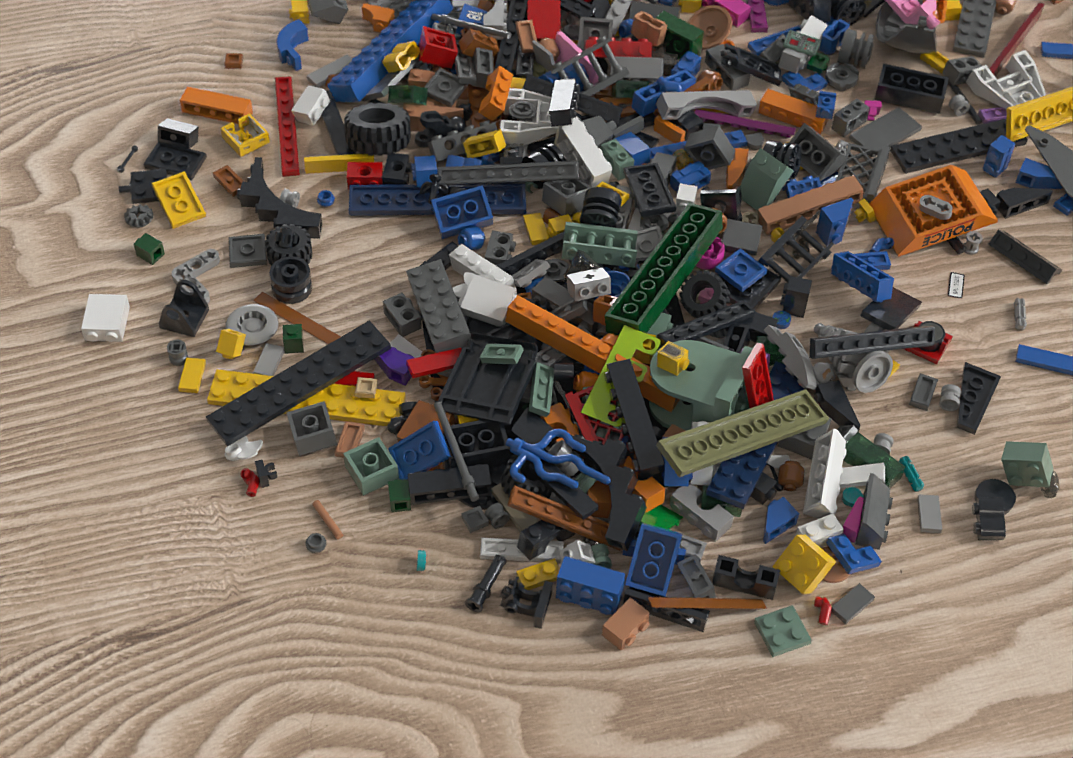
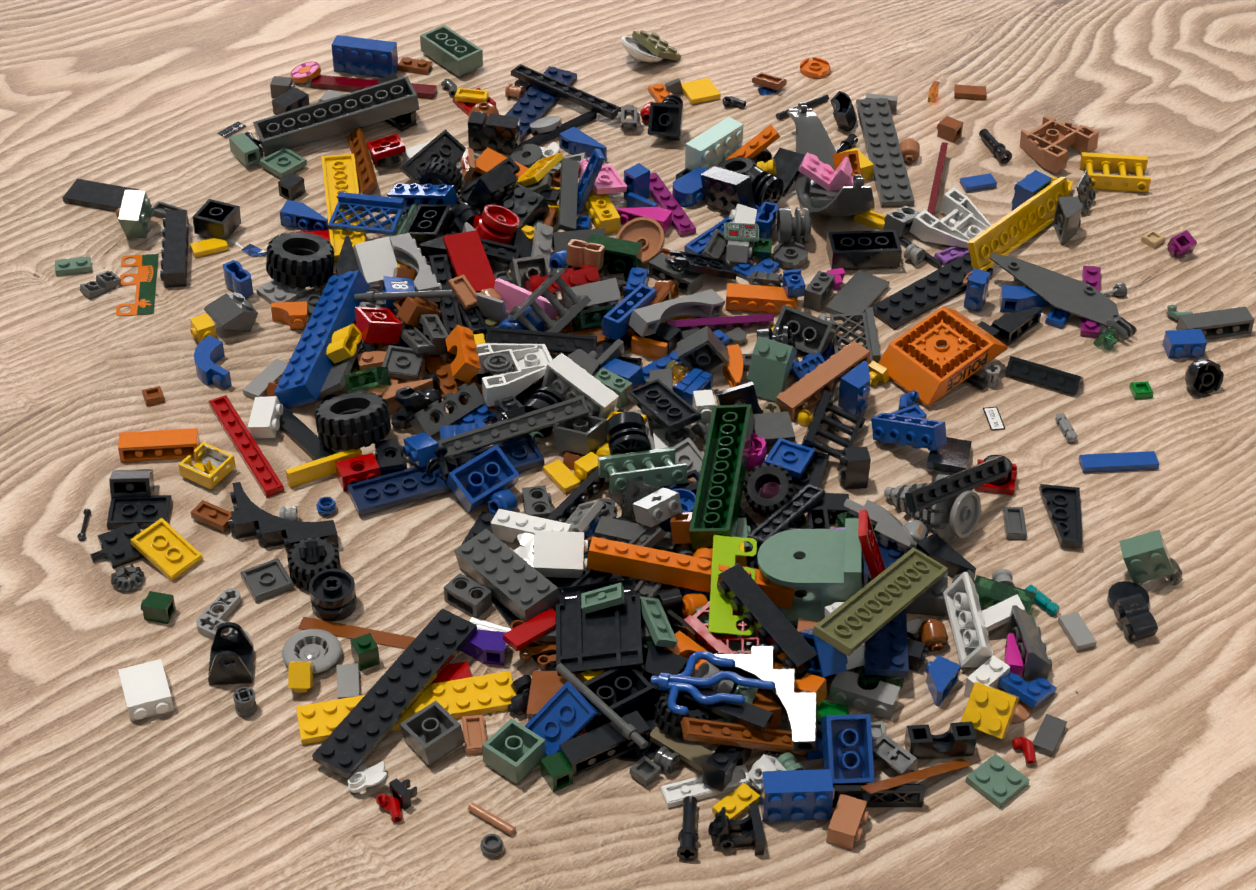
camera: 20 degrees left, 10 degrees down
(192, 375) = (271, 721): yellow tile -> none
(366, 387) = (469, 676): tan tile -> none
(421, 560) = (611, 827): teal tile -> none
(484, 144) = (475, 406): yellow brick -> none
(564, 102) = (542, 342): brick -> none
(669, 86) = (637, 302): blue arm -> none
(672, 358) = (781, 550): yellow brick -> none
(783, 319) = (853, 493): tile -> none
(851, 495) = (998, 637): teal tile -> none
(935, 208) = (948, 348): light grey beam -> none
(950, 397) = (1043, 522): light grey wheel -> none

